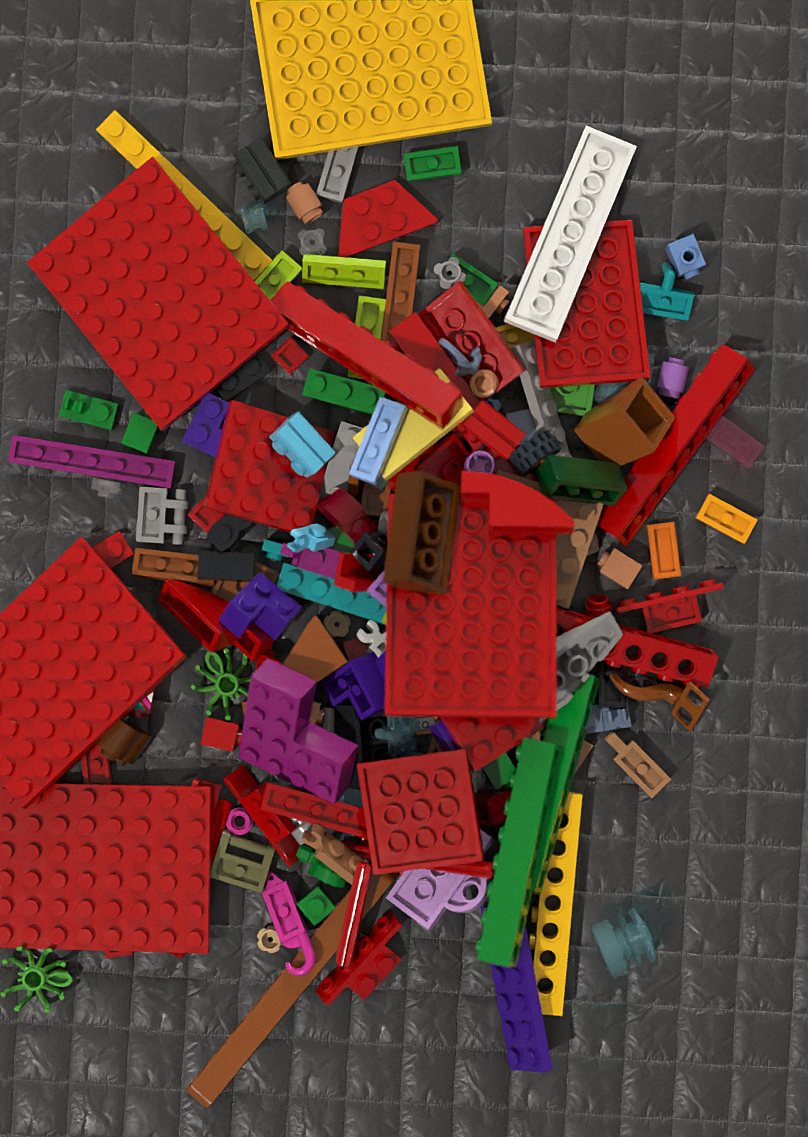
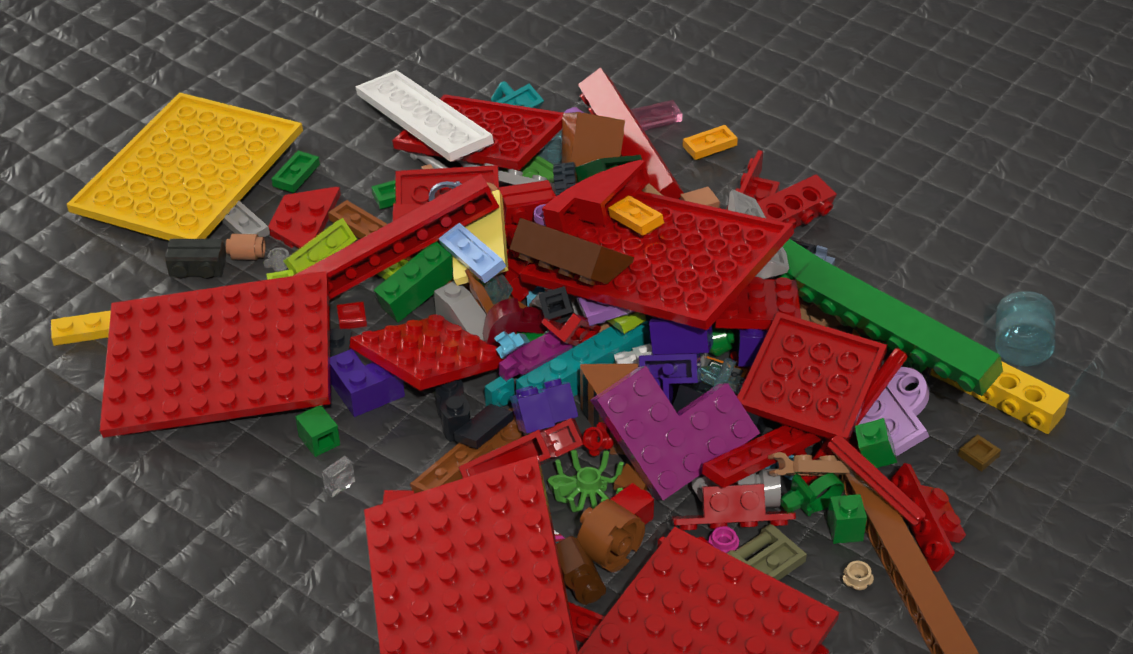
camera: 55 degrees left, 45 degrees down
(89, 410) = (262, 461): green plate -> none
(91, 461) = (302, 480): magenta plate -> none
(152, 515) = (394, 461): light grey plate -> none
(174, 741) = (610, 534): none -> dark orange brick
(205, 517) = (427, 429): red tile -> none
(254, 218) = (224, 275): clear light blue wheel -> none
(288, 921) = (851, 543): dark pink plate -> none
(301, 445) = (429, 313): medium azure brick -> none
(387, 897) = (876, 443): none -> green brick
(451, 265) = (383, 188): light grey plate -> none
(466, 966) = (979, 452): none -> pearl gold tile
(502, 560) = (636, 215): none -> light orange plate
(521, 1012) = (1029, 418): dark purple plate -> none
(638, 765) = (873, 265): medium nougat plate -> none
(663, 550) = (696, 180): orange tile -> none
(672, 693) = (833, 216): dark orange piece -> none
(689, 248) = (494, 73): medium blue brick -> none

